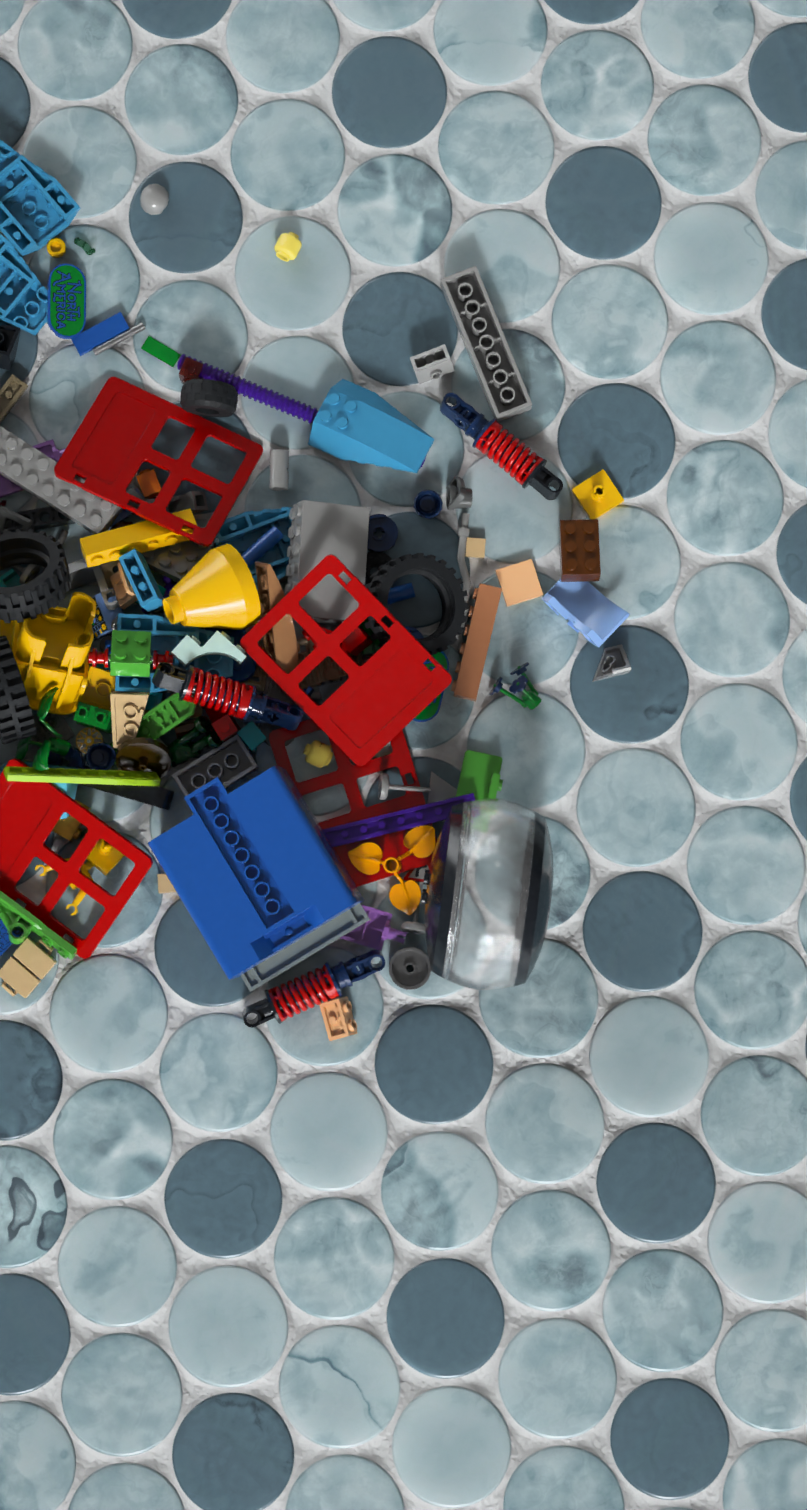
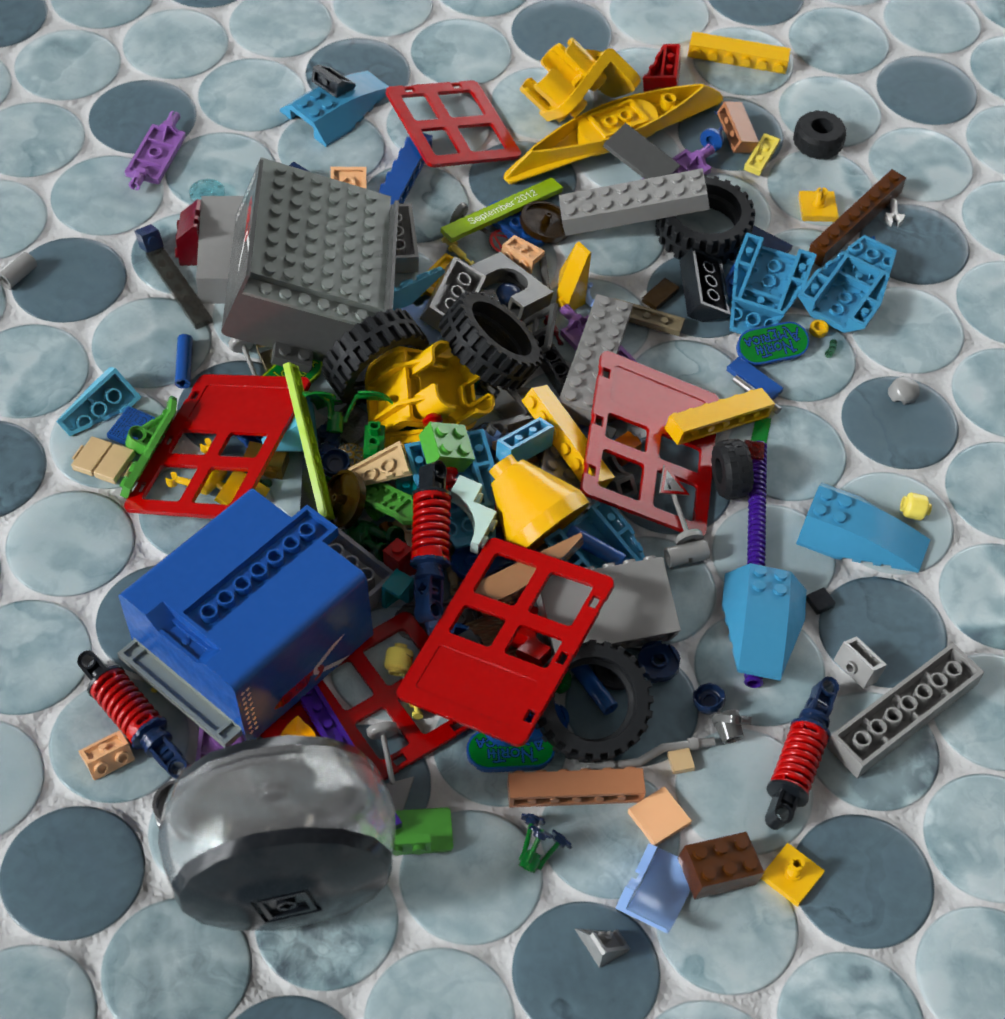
camera: 70 degrees right, 30 degrees down
(144, 386) = (719, 416): none -> yellow brick
(211, 460) = (671, 486): none -> light grey piece
(296, 305) = (855, 529): none -> dark azure wedge
(357, 370) = (820, 601): none -> black tile

